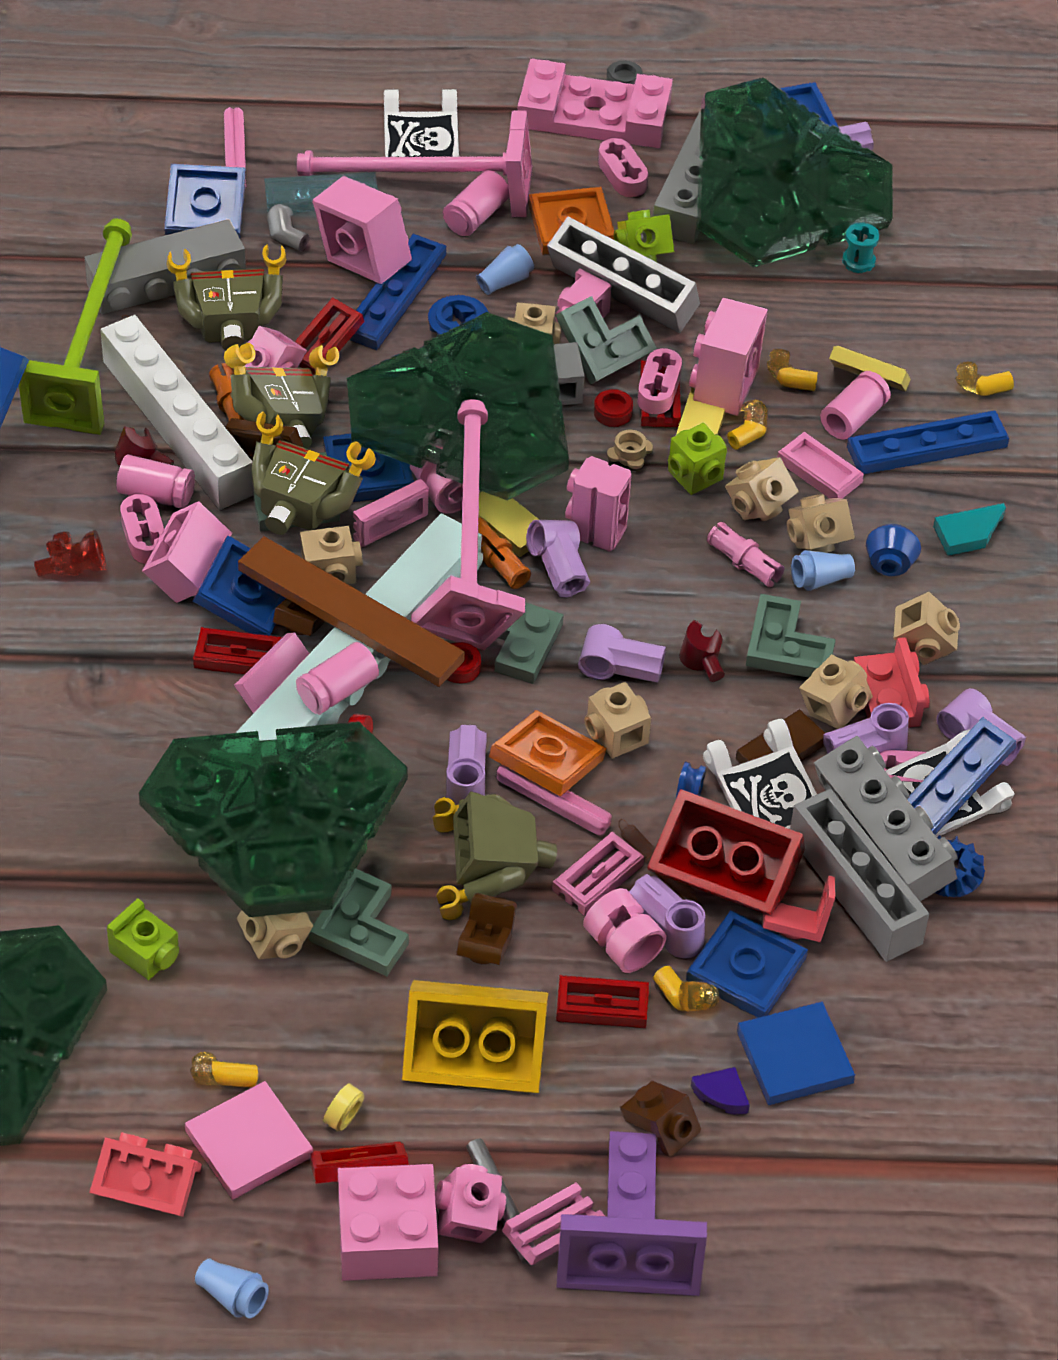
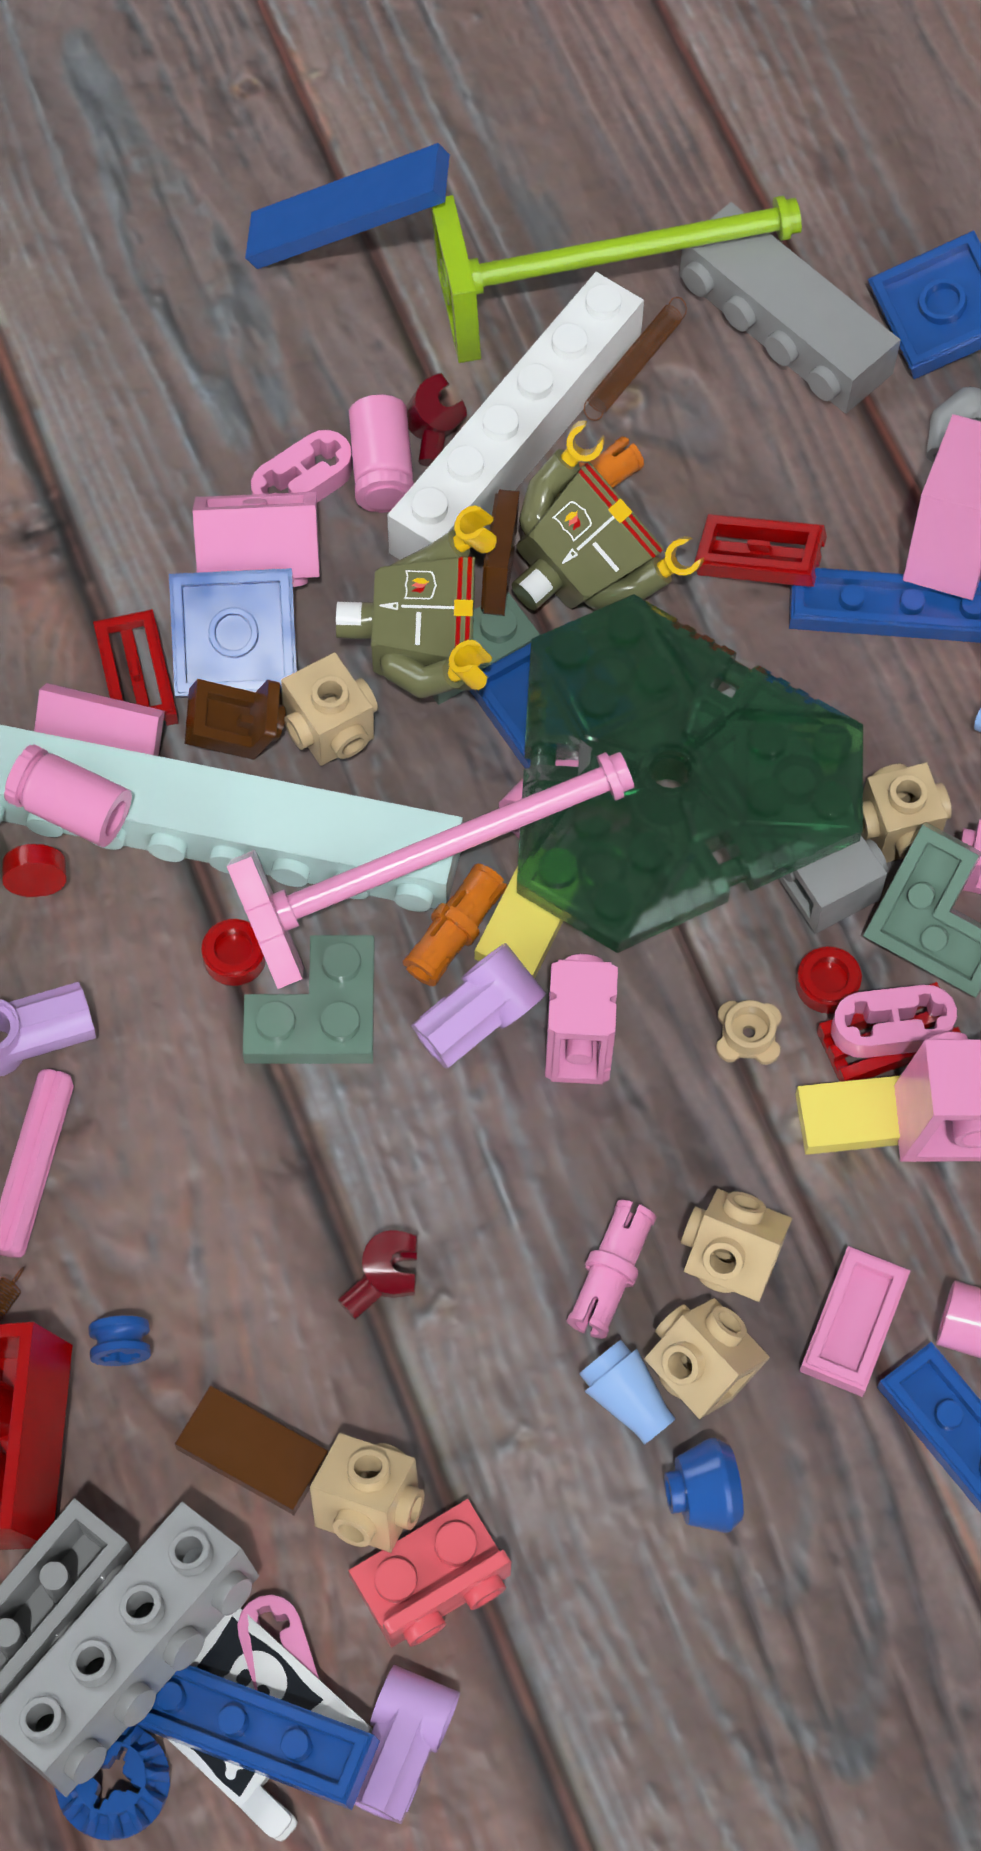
camera: 70 degrees right, 15 degrees up
(72, 558) = (211, 420): clear red piece -> none
(228, 302) = (756, 405): olive torso -> none
(275, 350) = (670, 494): bright pink brick -> none
(351, 611) = (211, 773): dark orange tile -> none
(391, 513) = (456, 757): bright pink tile -> none
(461, 306) = (892, 683): blue gear -> none
(547, 752) = (97, 1125): orange tile -> none
(609, 653) = (321, 1148): lavender piece -> none
(618, 719) = (186, 1195): tan brick -> none
(697, 458) = (761, 1129): lime brick -> none
(754, 424) = (892, 1191): arm -> none
(765, 785) = (148, 1454): flag -> none
(777, 645) = (444, 1371): sand green plate -> none
(884, 730) = (302, 1568): lavender piece -> none
(928, 627) = (553, 1591): tan brick -> none
(968, 529) = (831, 1596): teal tile -> none

